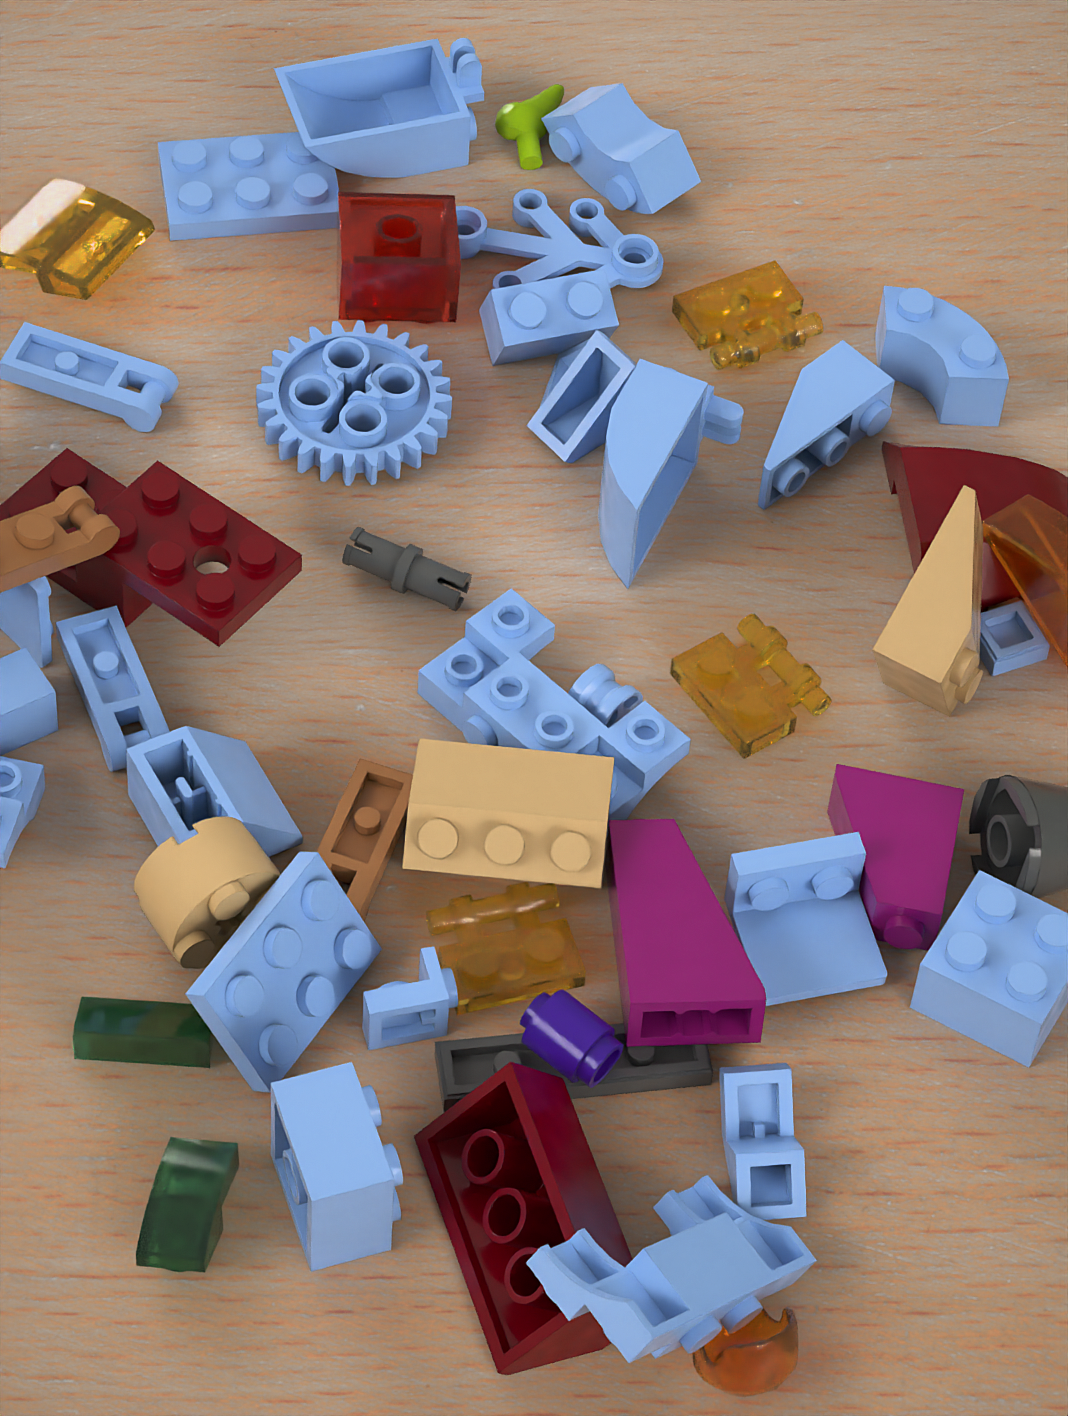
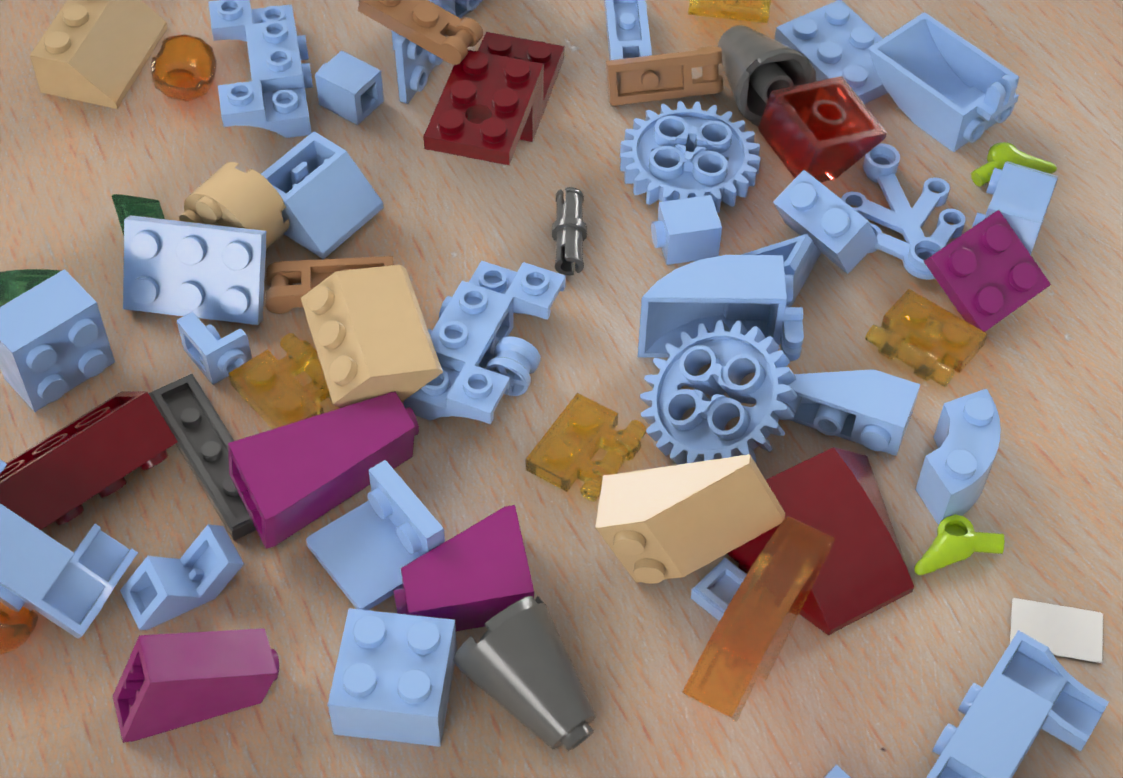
camera: 70 degrees right, 0 degrees up
(110, 681) = (389, 130): light blue plate -> none
(199, 368) = (663, 76): none -> medium nougat plate
(257, 268) = (758, 66): none -> dark grey cone
(476, 451) = (687, 229): none -> light blue brick
(570, 1037) = (206, 432): dark purple brick -> none
(702, 213) = (987, 272): none -> magenta plate
(803, 561) = (731, 358): none -> light blue gear
(929, 1169) = (192, 679): none -> magenta slope
(1034, 418) = (955, 543): none -> lime animal

